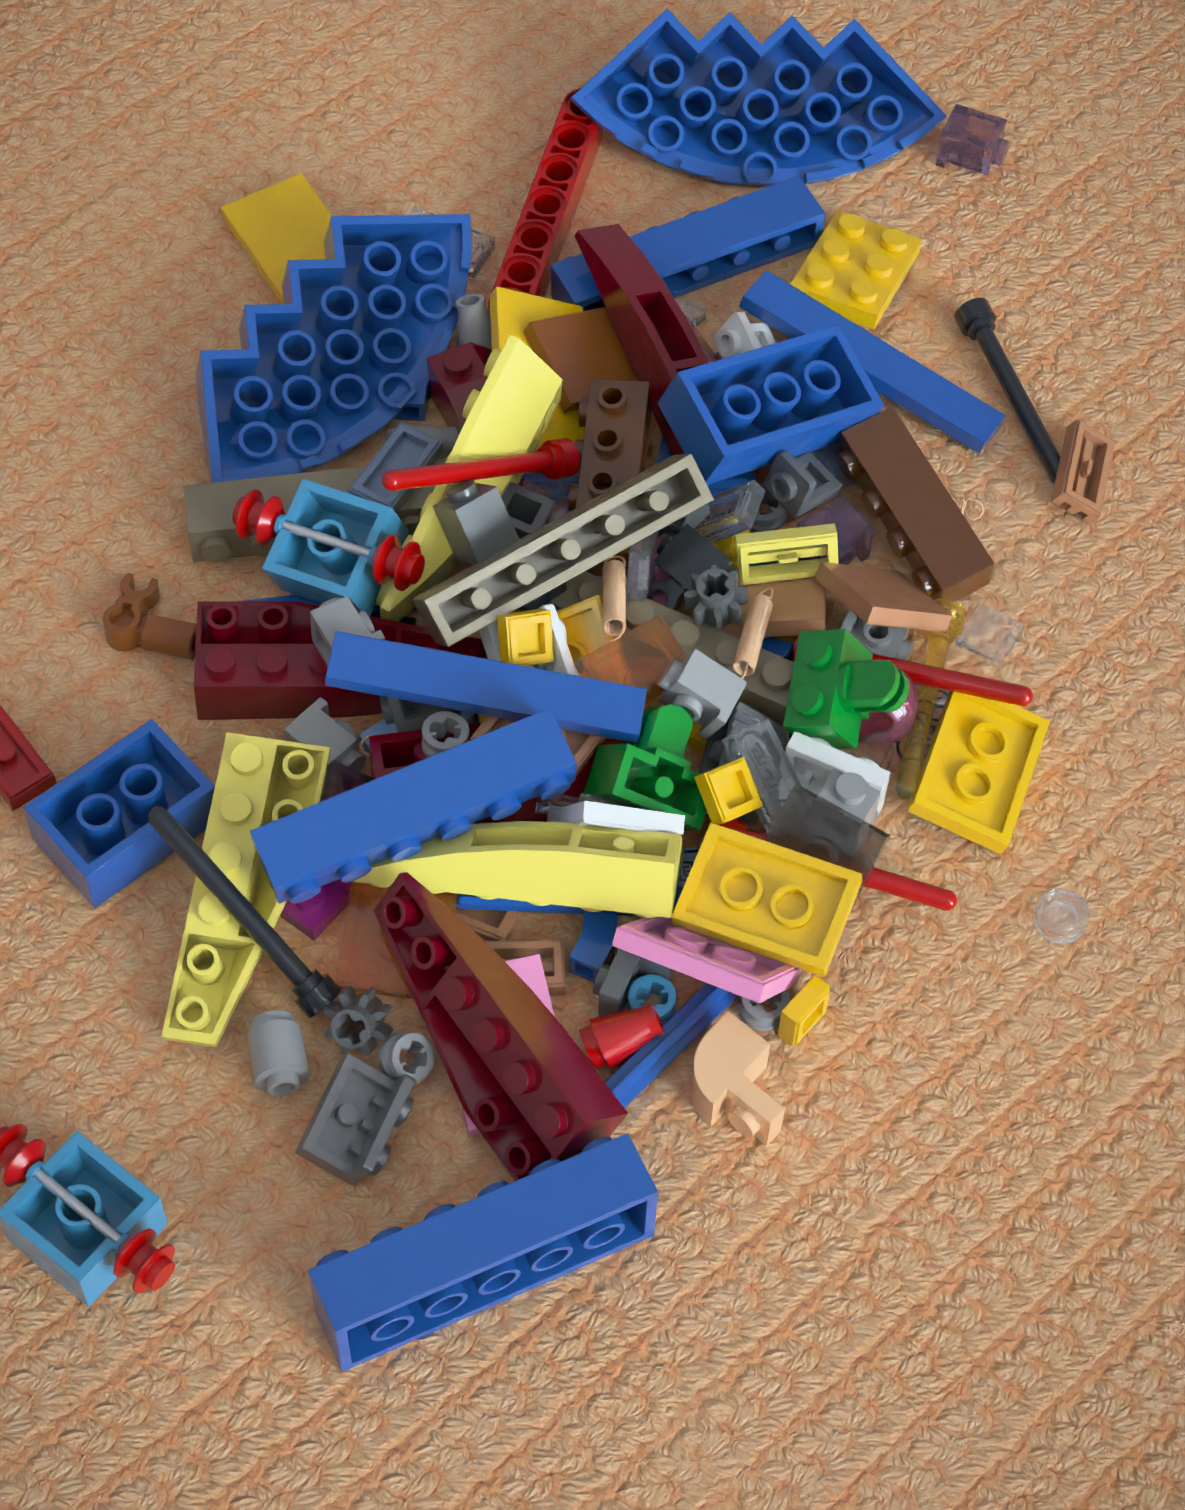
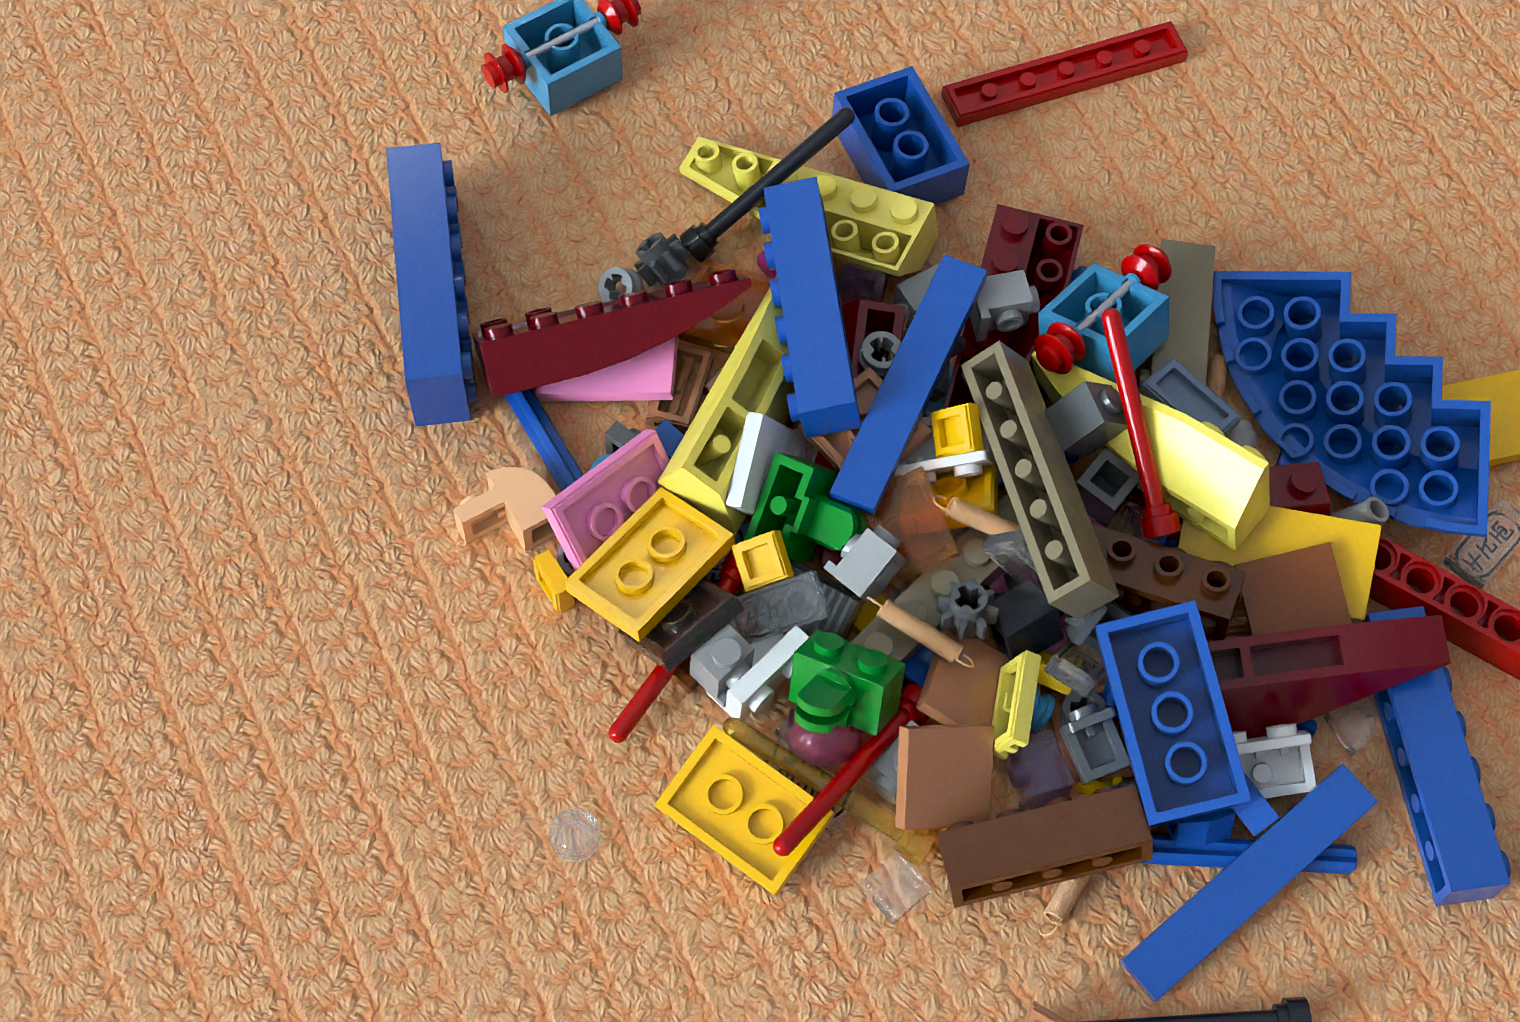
camera: 105 degrees right, 5 degrees up
(129, 627) = (1097, 196): dark orange bar -> none
(277, 1053) = (656, 205): light grey brick -> none
(355, 1120) = (580, 239): flat silver bracket -> none
(620, 1034) = (582, 434): red cone -> none
(857, 267) = (1382, 913): yellow plate -> none

